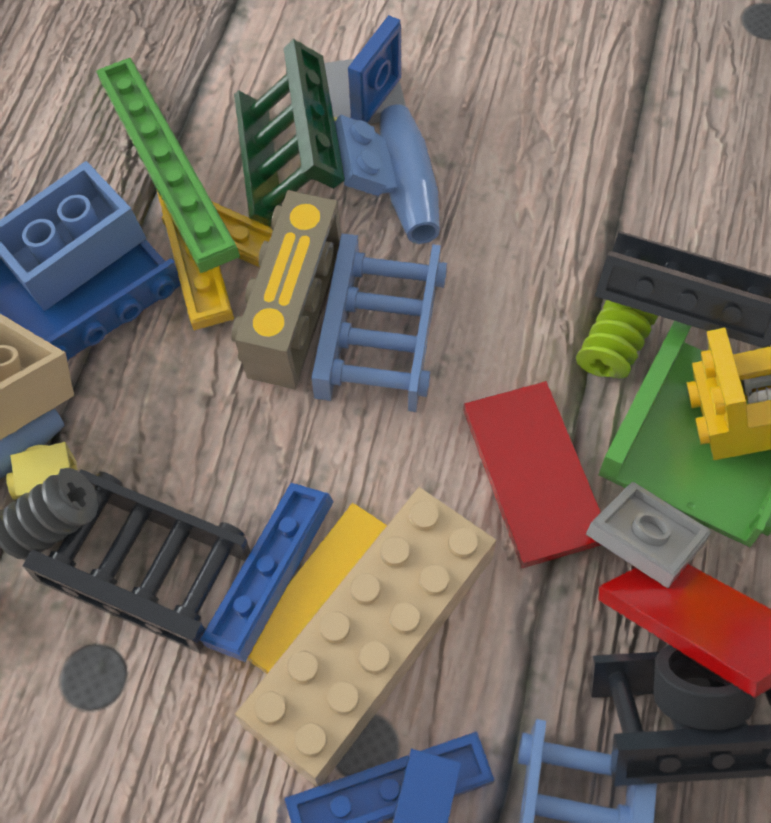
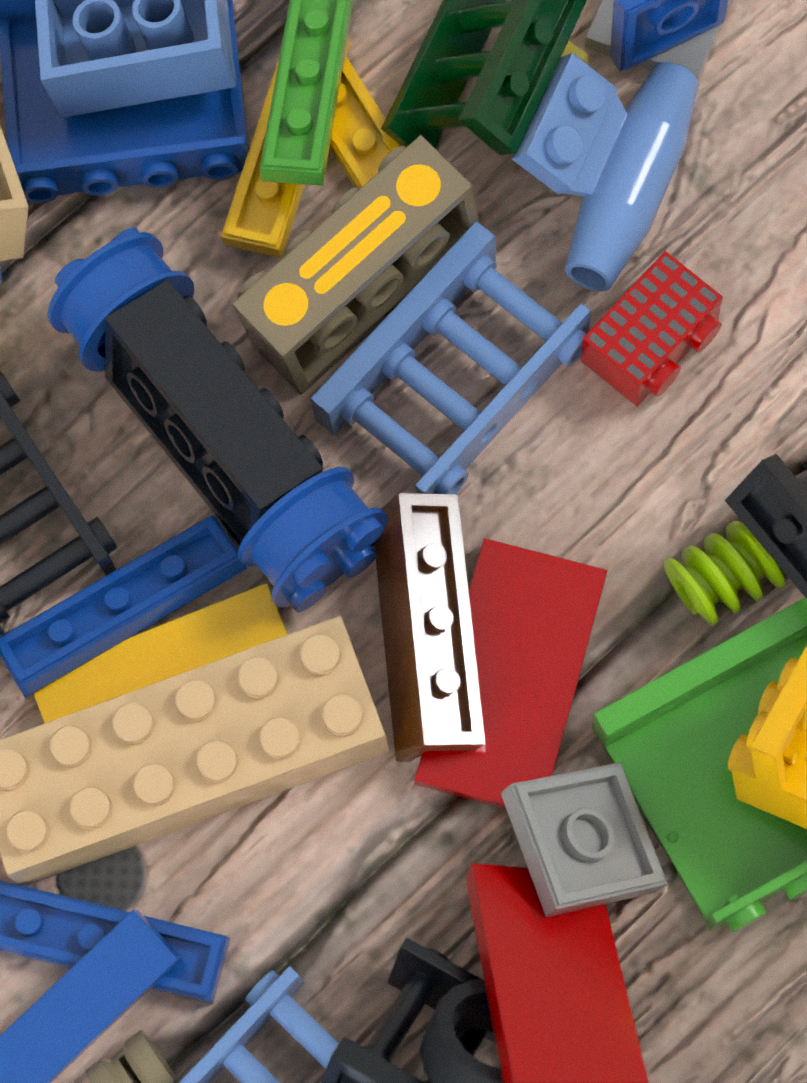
camera: 40 degrees right, 10 degrees up
(259, 420) = (213, 421): none -> brick
(467, 469) = (428, 627): none -> panel
(476, 243) = (652, 330): none -> red brick

